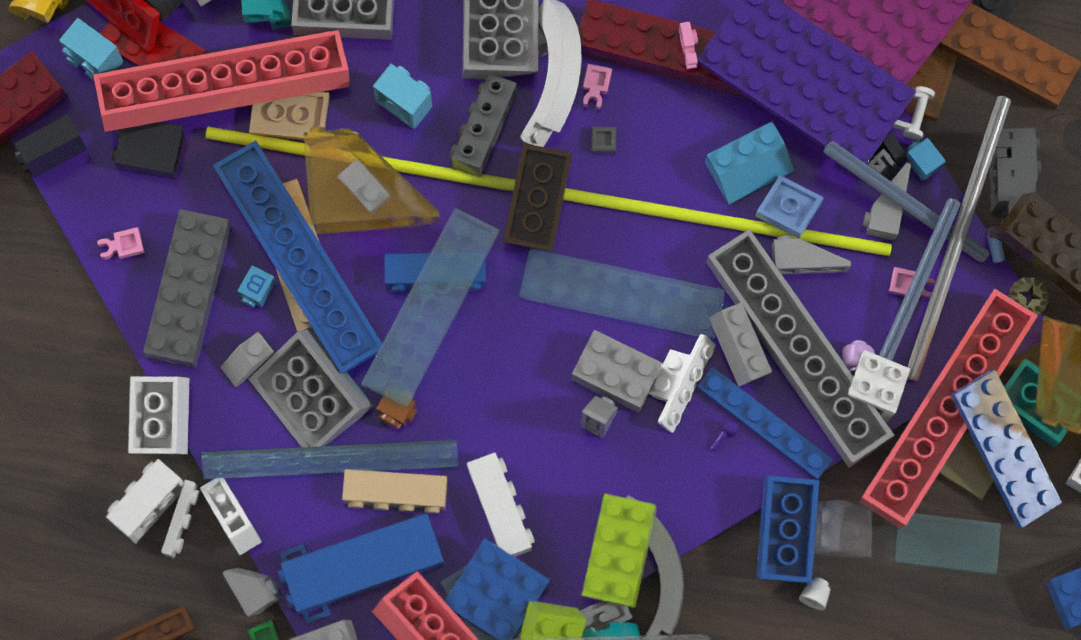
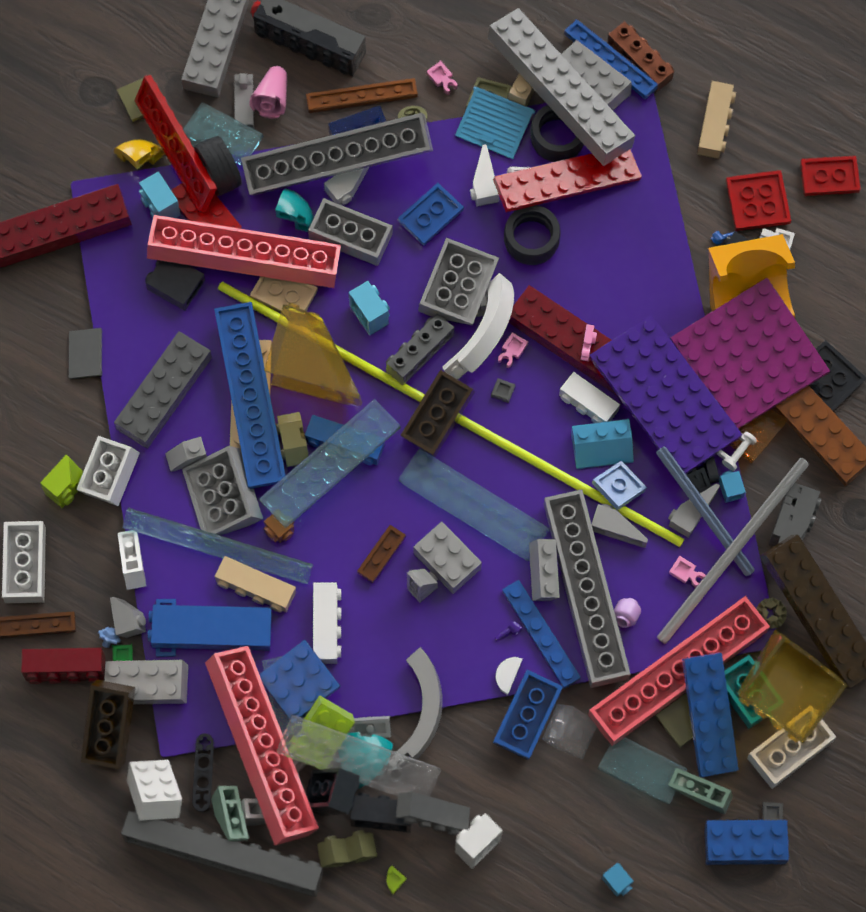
camera: 20 degrees right, 5 degrees down
(49, 147) = (104, 255): black brick -> none
(71, 277) = (85, 353): none -> dark grey piece
(97, 567) = (24, 562): none -> white brick
(108, 449) = (62, 482): none -> lime slope
(126, 244) = (132, 342): bright pink plate -> none
(145, 500) = (76, 527): white brick -> none
(181, 519) = (95, 551): white plate -> none
(239, 621) = (108, 636): none -> medium blue plant
(256, 287) = (212, 406): dark azure brick -> none
(364, 186) = (311, 357): light grey slope -> none
(377, 299) = (293, 438): none -> olive brick
(534, 395) = (381, 554): none -> reddish brown plate
(619, 550) = (398, 683): lime brick -> none
(678, 380) = (490, 580): white bracket -> none
(712, 114) = (588, 399): none -> white brick
(742, 487) = (507, 672): none -> white tile
(816, 594) = (531, 769): white hat -> none
(879, 383) = (633, 633): white bracket -> none
(920, 279) = (687, 577): sand blue axle -> none
(995, 245) = (760, 569): medium blue arm -> none
(1028, 544) = (701, 790): none -> sand green slope

